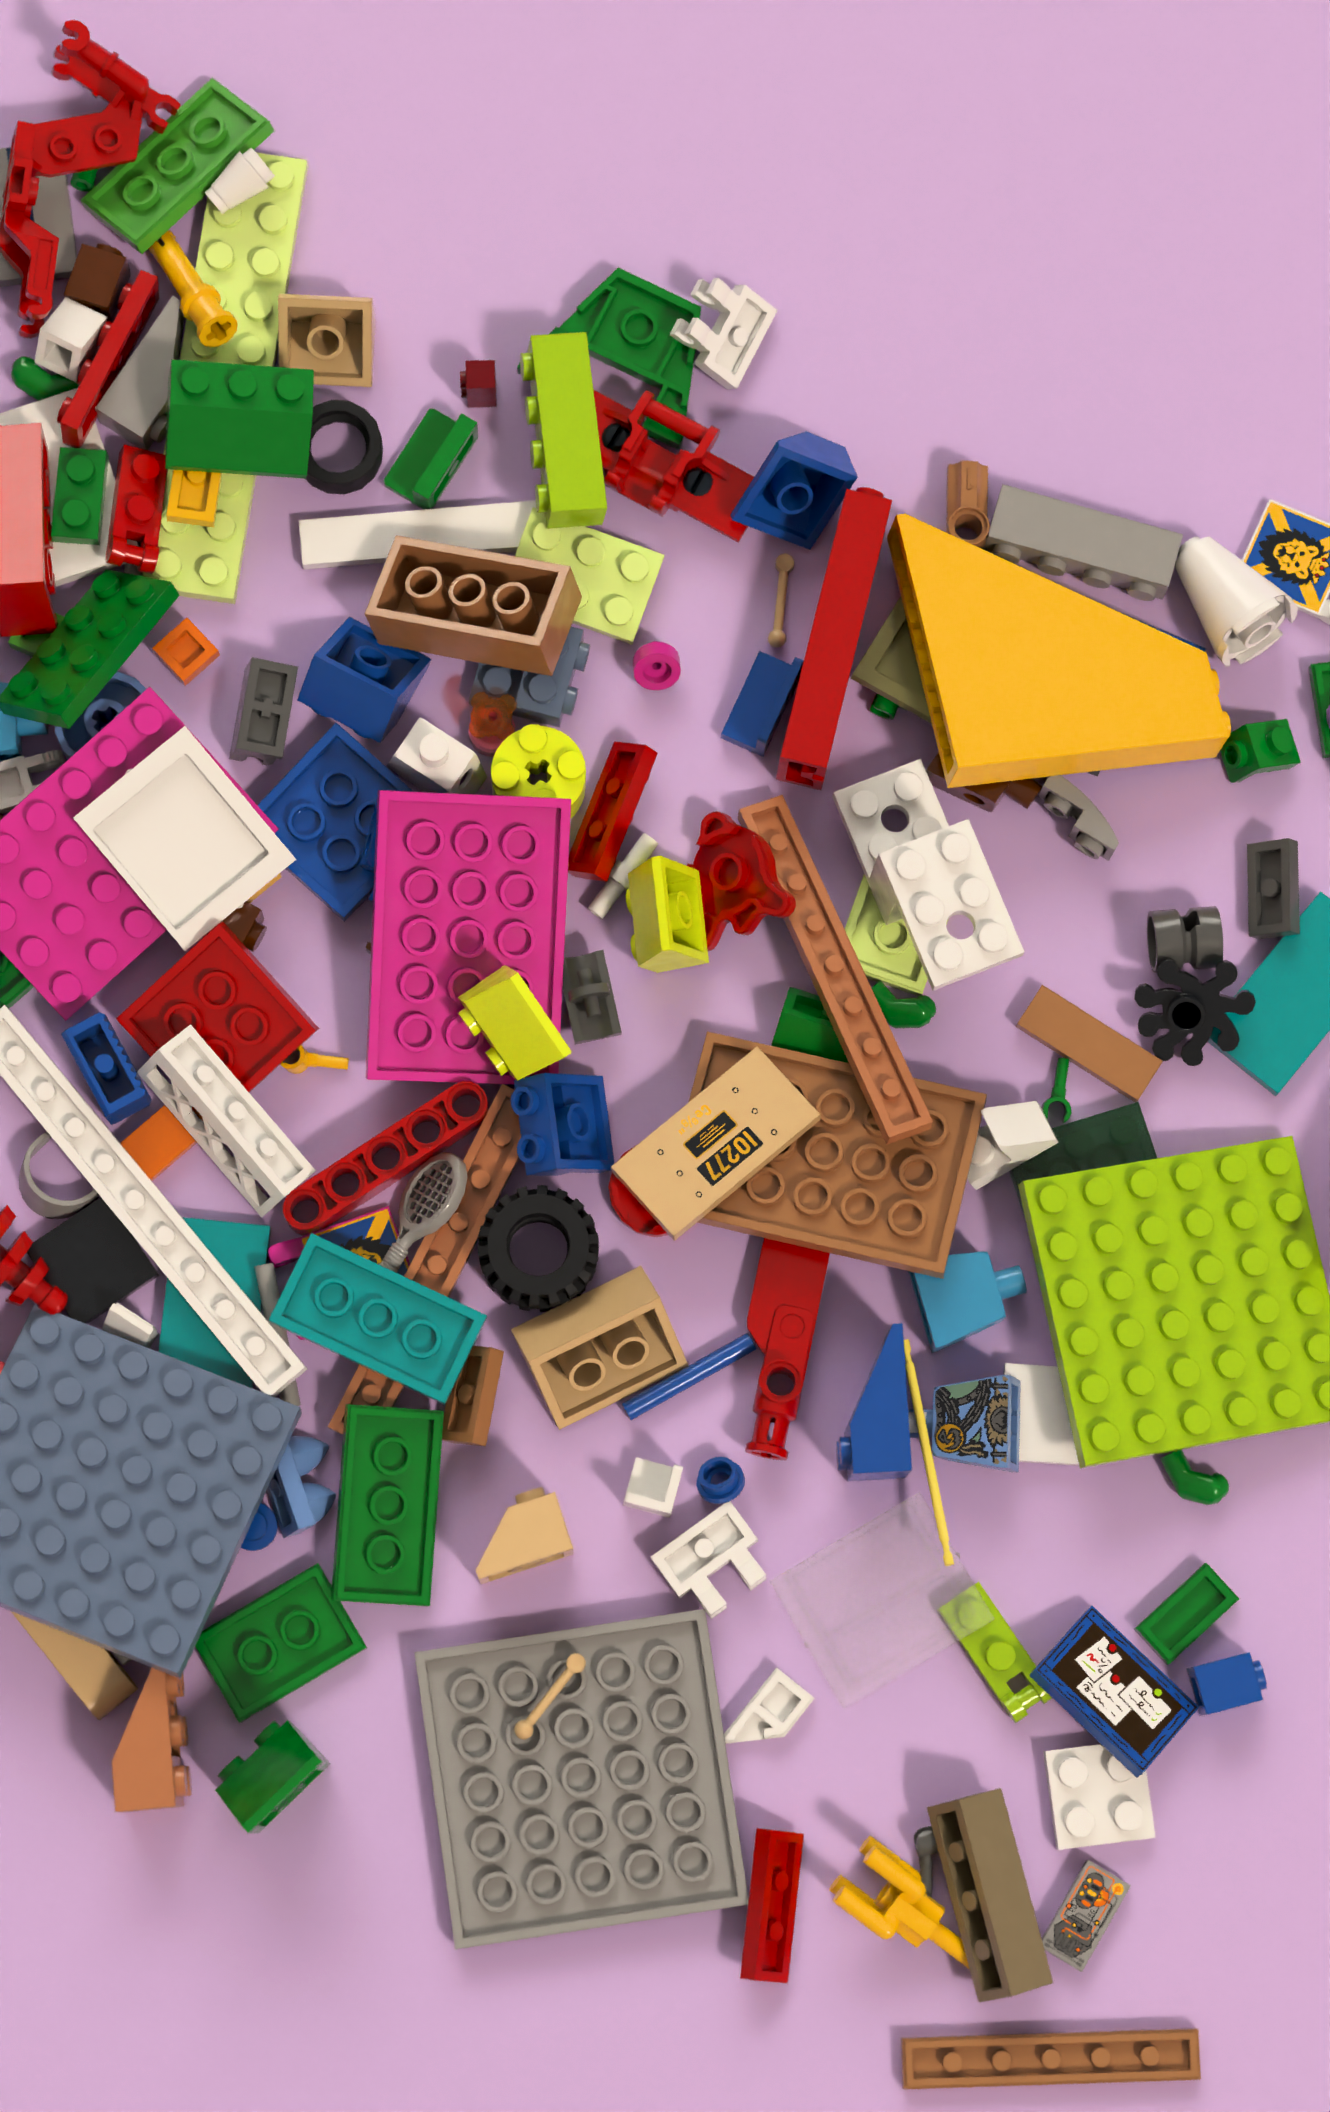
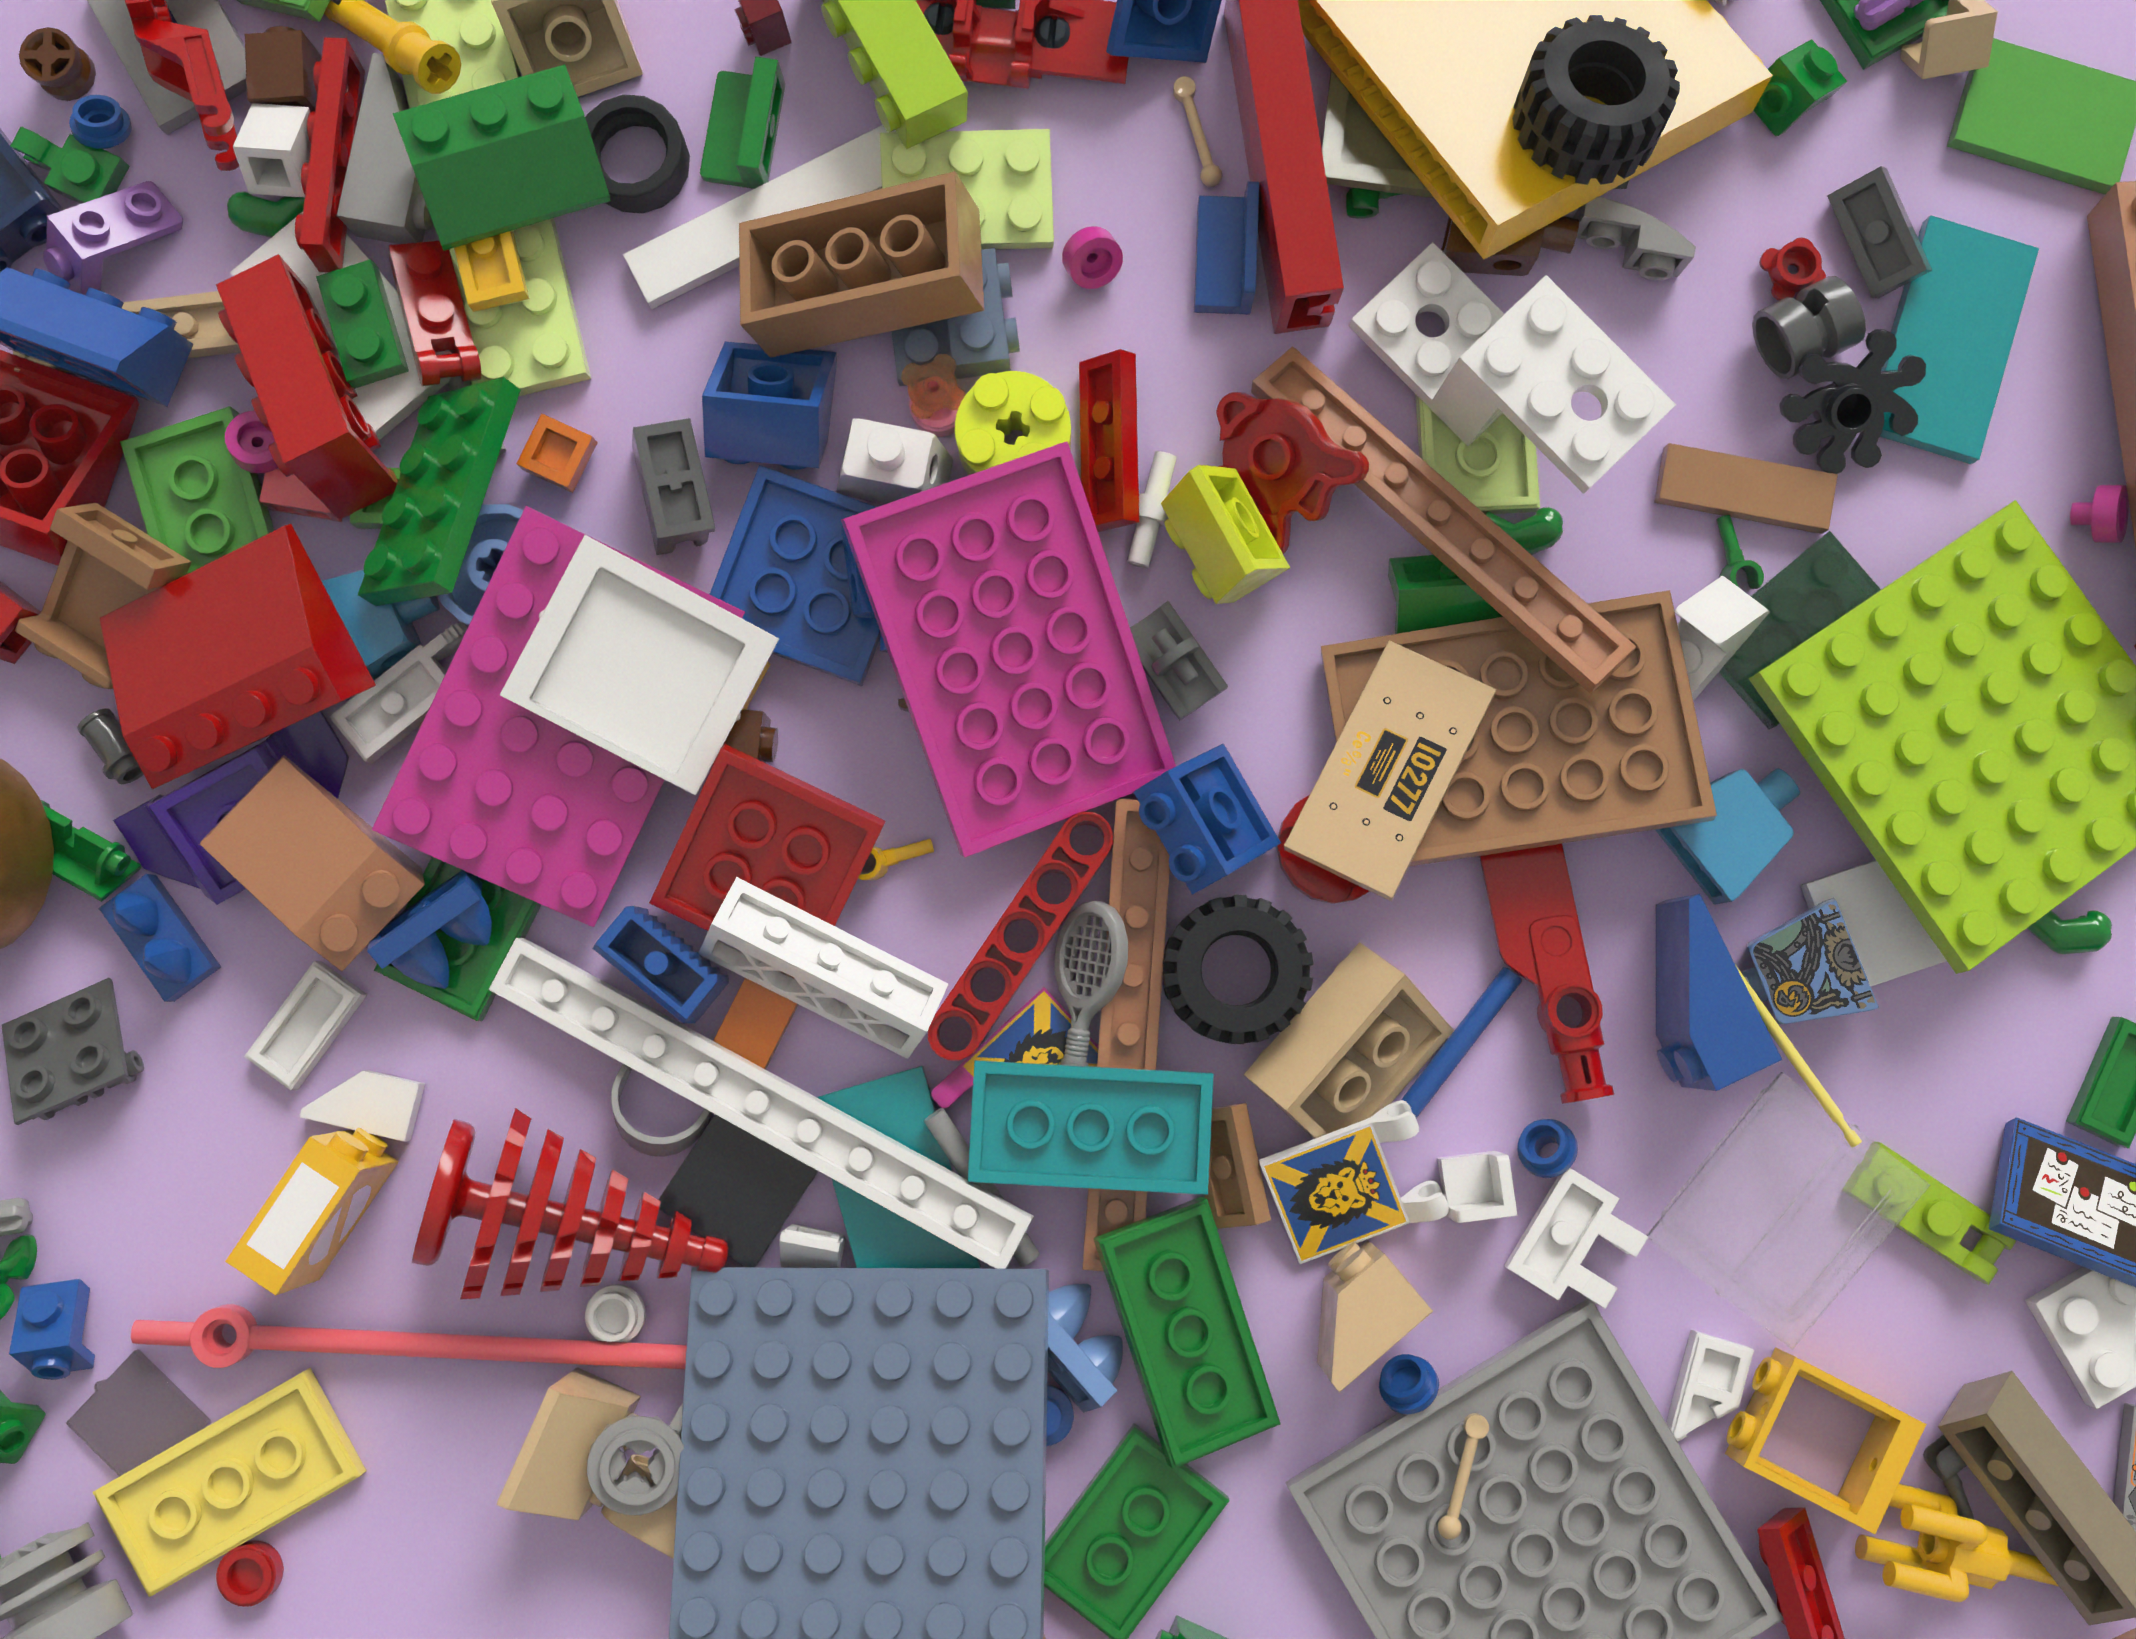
camera: 15 degrees left, 5 degrees up
(512, 1023) = (1108, 728): neon yellow slope -> none
(539, 1613) = (1408, 1384): none -> blue plate
(551, 1446) = (1343, 1189): none -> flag
(873, 1818) = (1876, 1466): none -> yellow window
(1084, 674) = (1603, 63): none -> black tyre
(1206, 879) = (1800, 254): none -> red plate

